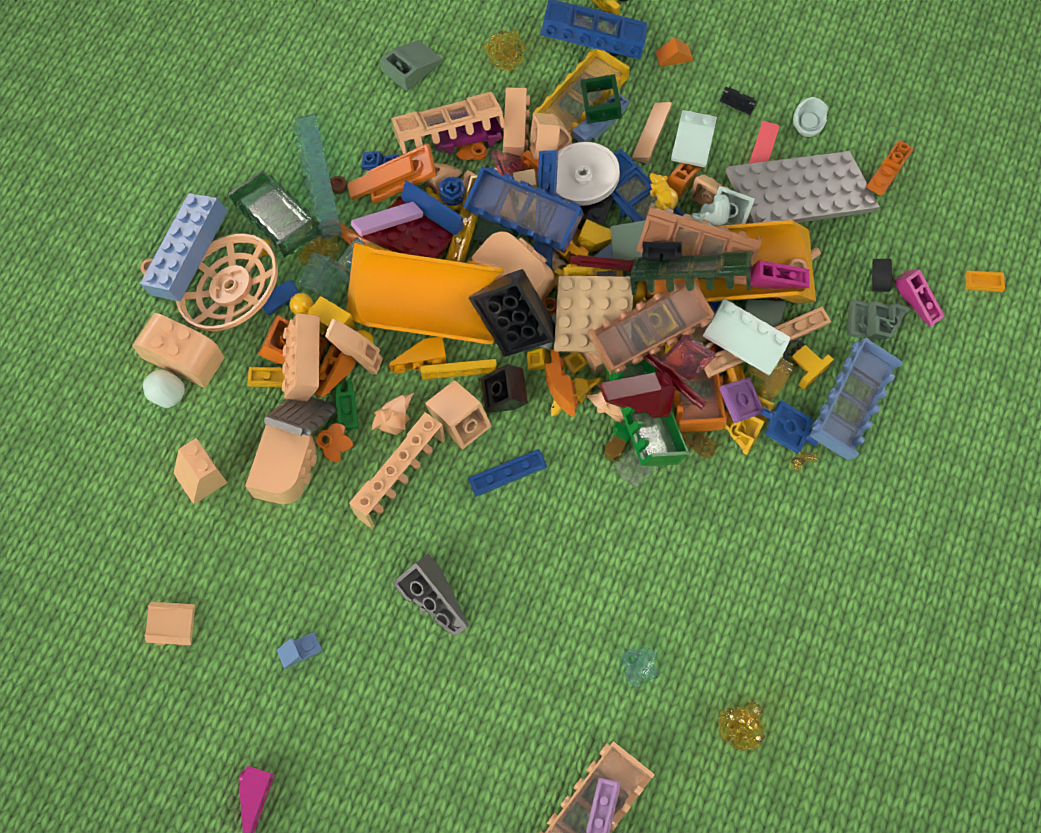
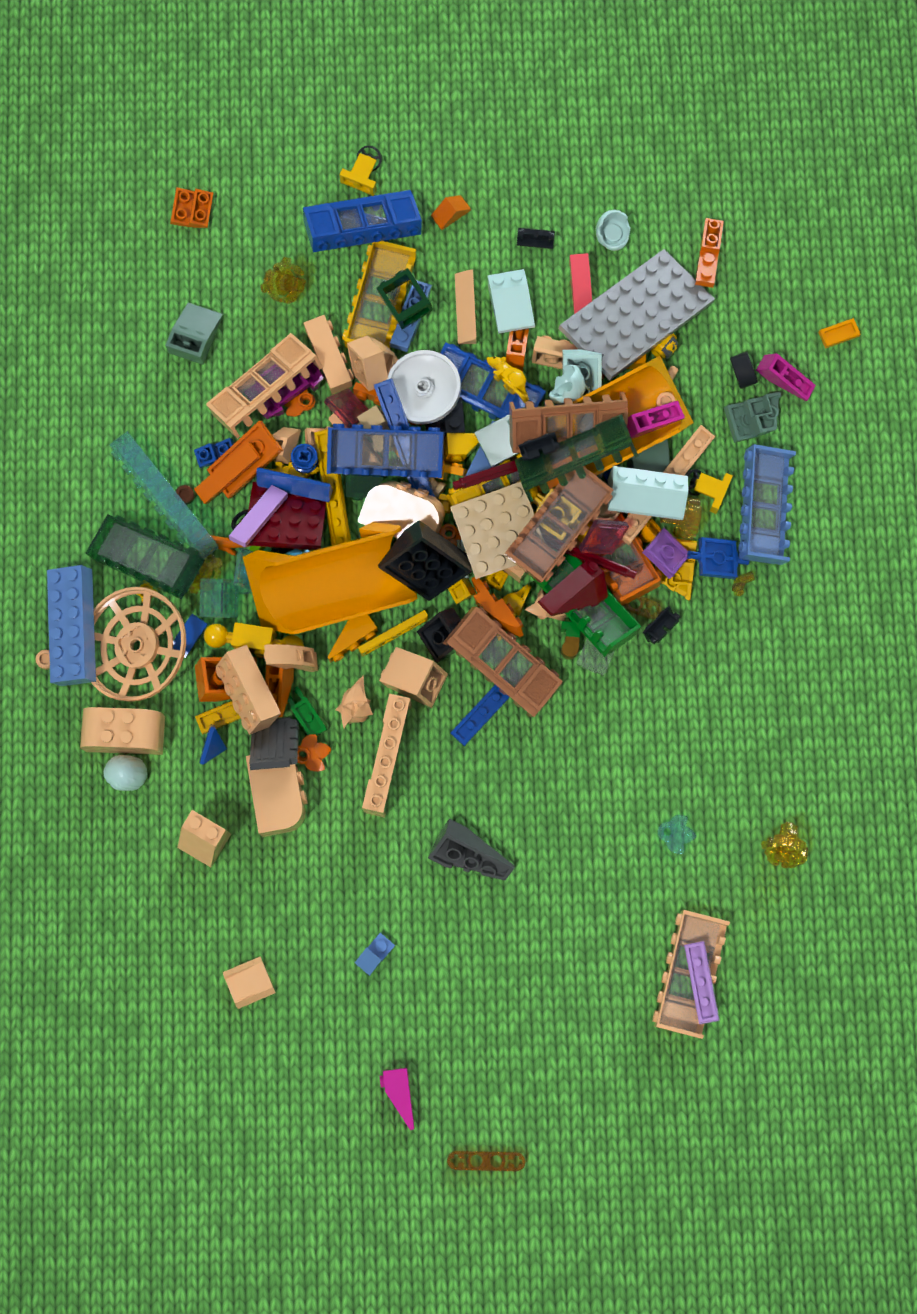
camera: 25 degrees left, 10 degrees up
(250, 397) = (213, 745): none -> blue slope
(546, 431) = (503, 661): none -> nougat window
(702, 466) = (655, 631): none -> black hinge
(818, 228) = (666, 347): none -> yellow head

